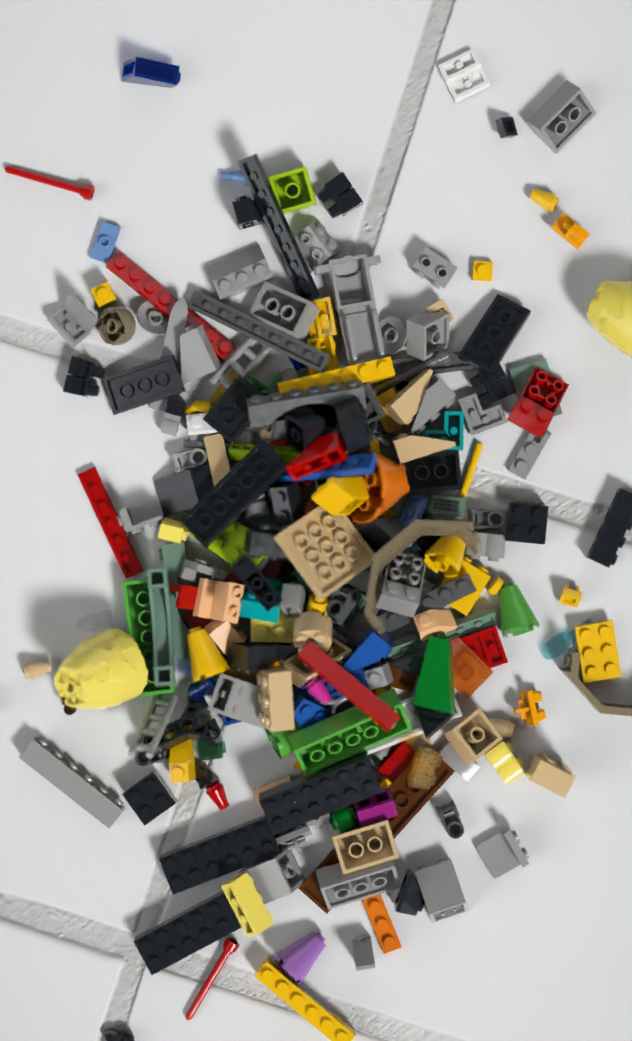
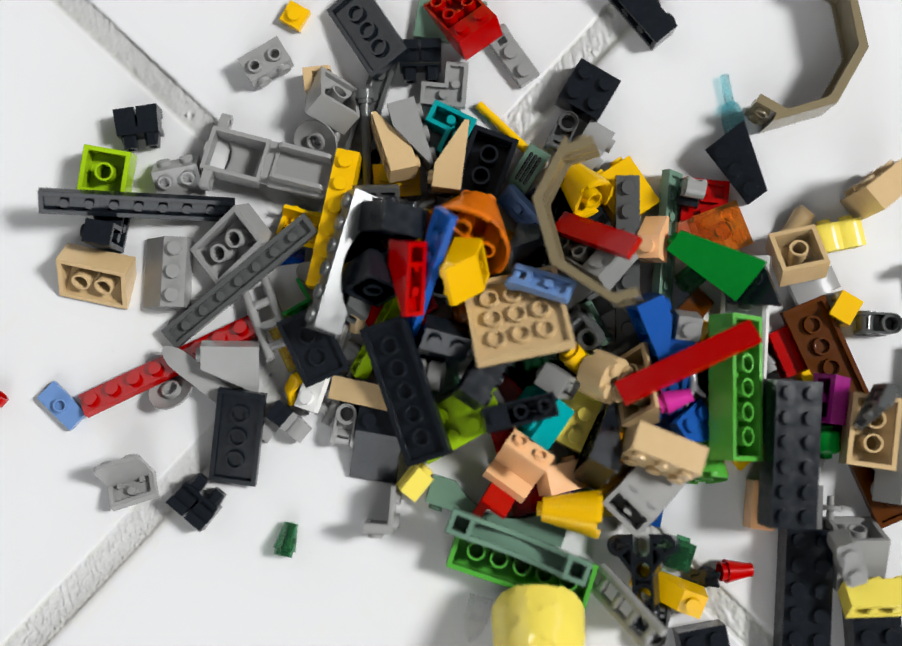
camera: 65 degrees left, 5 degrees down
(83, 457) = (286, 540): none -> clear green cone
(104, 295) = (117, 434): yellow brick -> none
(108, 519) = (365, 548): red tile -> none
(117, 325) = (157, 435): dark tan cylinder -> none
(195, 570) = (471, 478): light grey bracket -> none
(199, 689) = (609, 534): clear blue cone -> none
(212, 220) = (96, 275): none -> tan slope
(237, 177) = (64, 226): medium blue cone -> none
(264, 866) = (847, 557): none -> light grey brick
(325, 321) = (265, 204): yellow plate -> none
(357, 554) = (540, 283): none -> medium blue plate
(387, 837) = (878, 400): none -> dark grey wing
(413, 579) = (598, 235): none -> red tile
(423, 767) = (808, 326): clear yellow slope -> none
(451, 790) = (844, 307): none -> yellow panel
(482, 635) = (690, 192): none -> light grey leg
(495, 585) = (640, 157): yellow tile -> none
(515, 611) = (678, 147): bright green cone -> none
(524, 662) = (739, 163): none -> black wedge
(527, 707) = (790, 183): light orange hips -> none
(569, 596) = (689, 83): yellow tile -> none
(597, 651) = (753, 75): yellow plate -> none

